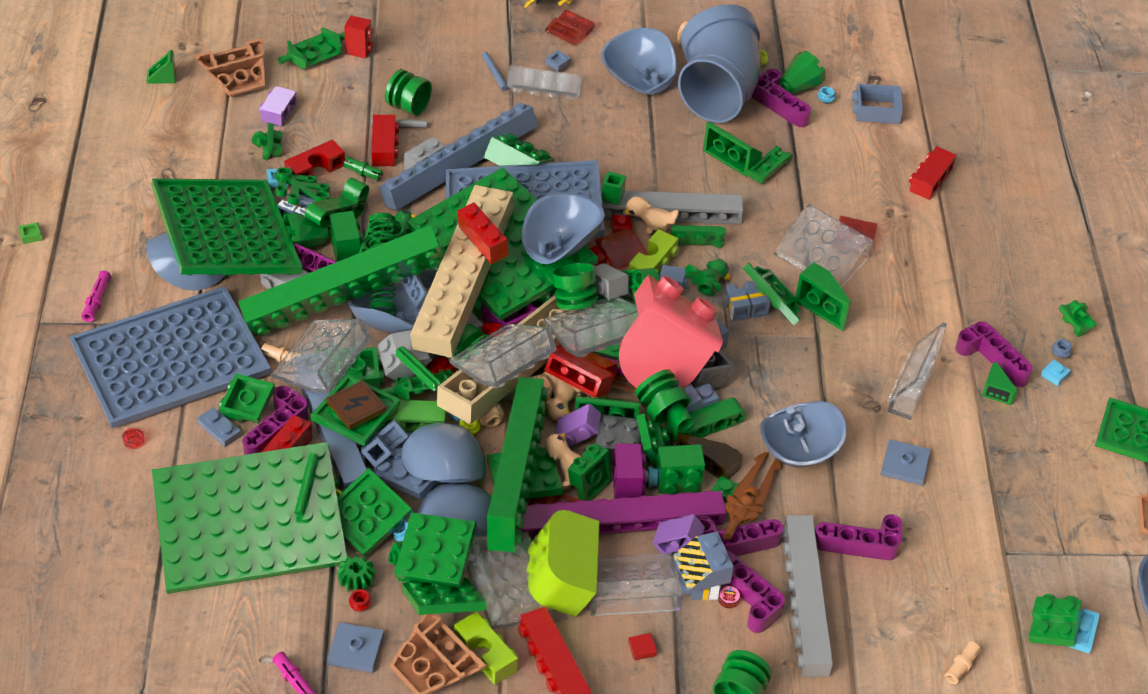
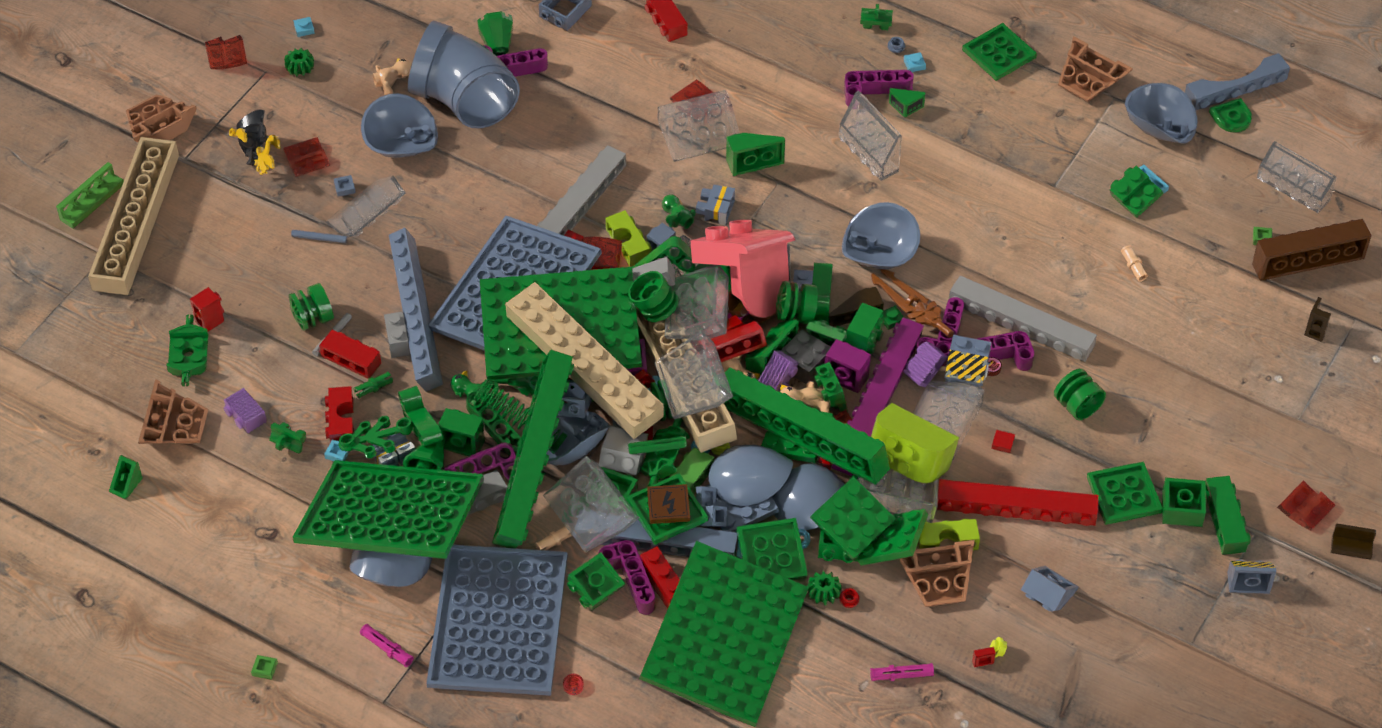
camera: 55 degrees left, 5 degrees up
(219, 427) = (602, 617): sand blue plate -> none
(306, 483) = (729, 574): green bar -> none
(355, 647) = (891, 621): sand blue plate -> none
(482, 233) = (576, 321): red brick -> none
(511, 151) = (447, 269): slope -> none
(560, 226) = (599, 268): sand blue piece -> none
(613, 188) = (549, 219): green brick -> none
(653, 217) = (589, 213): light nougat animal -> none
(699, 235) = (626, 195): green plate -> none
(729, 149) = (547, 126): green slope -> none
(769, 164) = (578, 111): green plate -> none
(779, 294) = (734, 179): green wing -> none
(826, 94) = (526, 32): medium azure plate -> none
(861, 541) = (1003, 253): magenta beam -> none
(905, 462) = (938, 196): sand blue plate -> none

